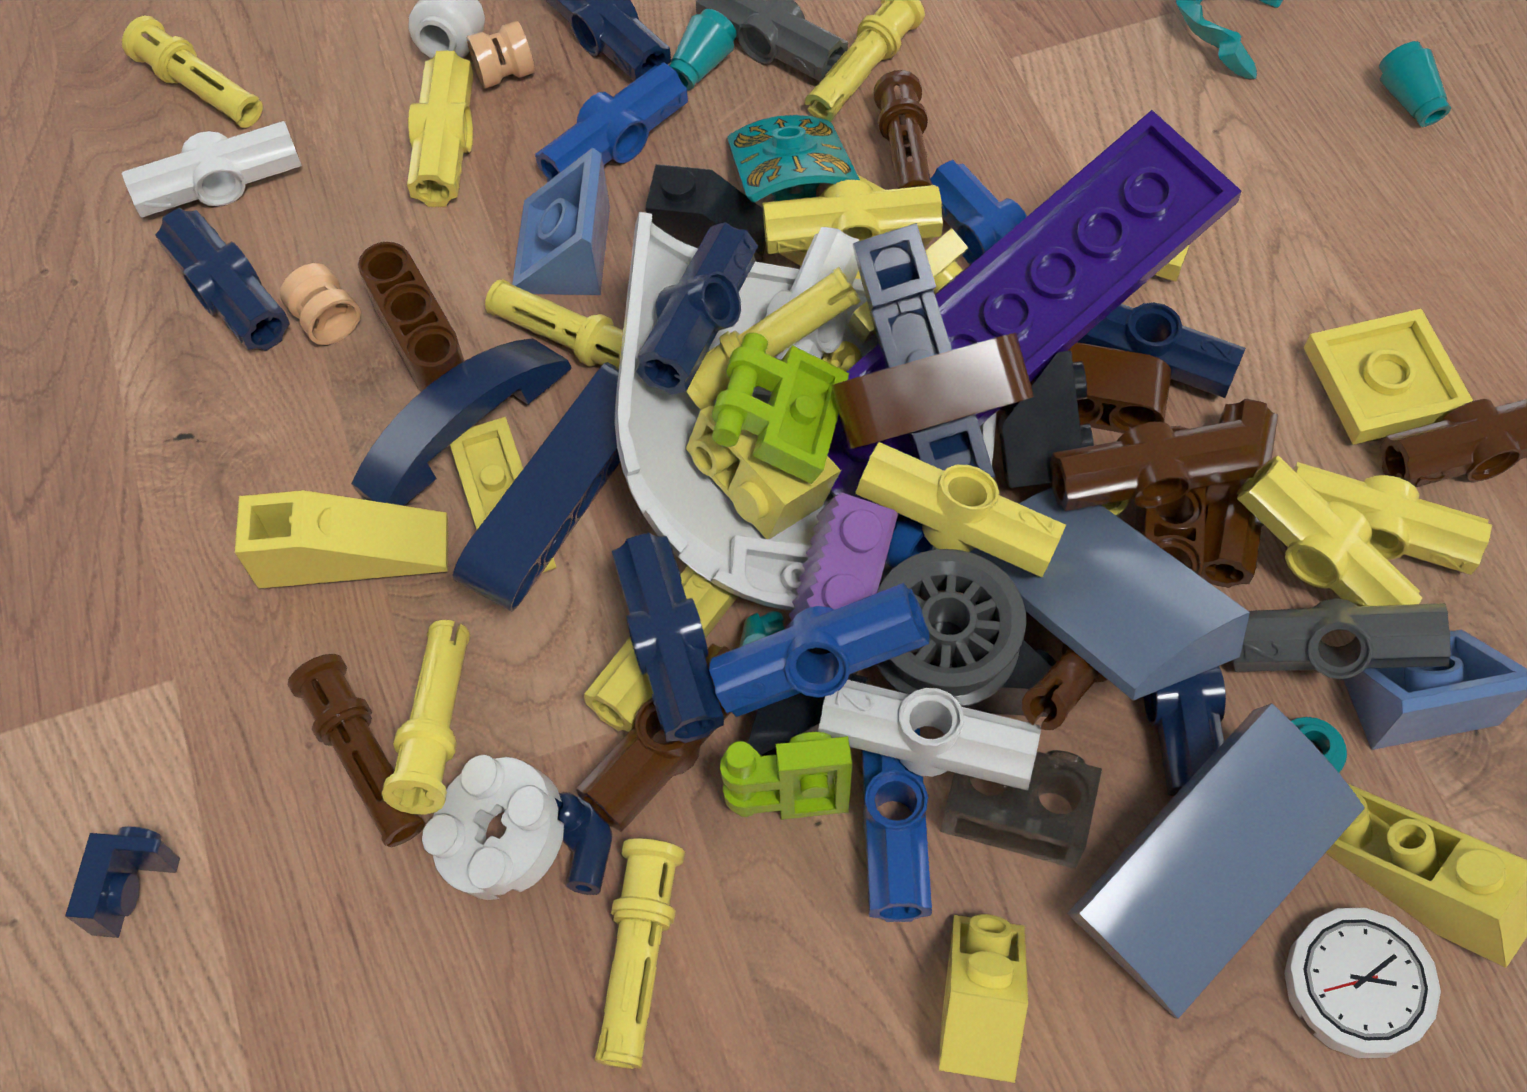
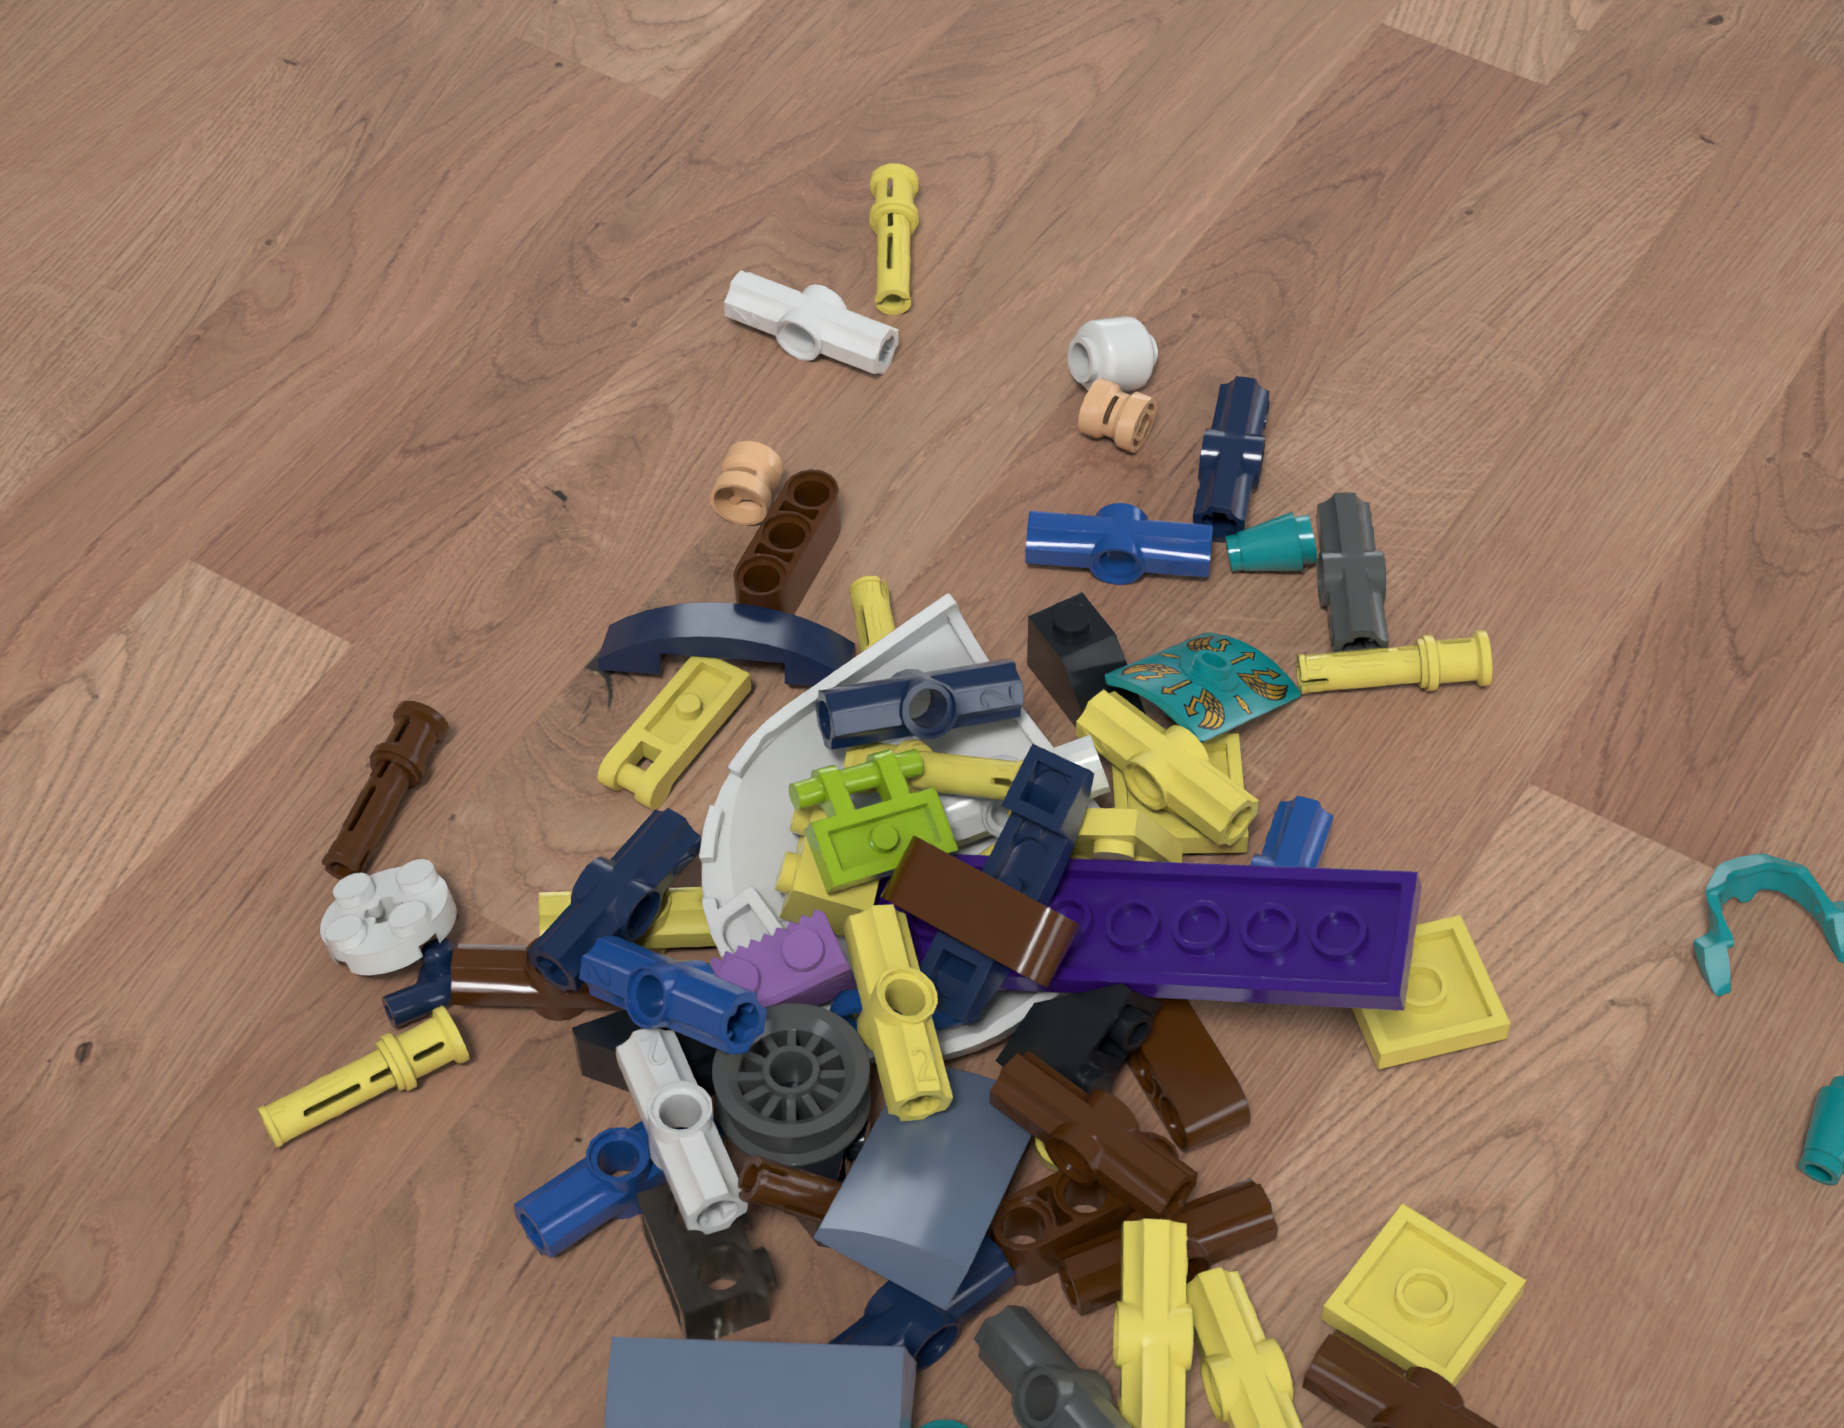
camera: 50 degrees right, 10 degrees down
(108, 877) = (163, 718): dark blue bracket -> none
(222, 279) = (712, 407): dark blue piece -> none
(335, 538) = (541, 647): light yellow slope -> none
(426, 738) = (418, 820): light yellow pin -> none
(440, 129) = (998, 432): light yellow piece -> none
(545, 498) = (654, 748): dark blue beam -> none
(565, 232) = (989, 585): medium blue slope -> none
(800, 781) = (573, 1067): lime plate -> none
(907, 173) = (1333, 743): reddish brown pin -> none
(984, 998) = (505, 1332): light yellow slope -> none
(1158, 332) = (1278, 1112): dark blue piece -> none

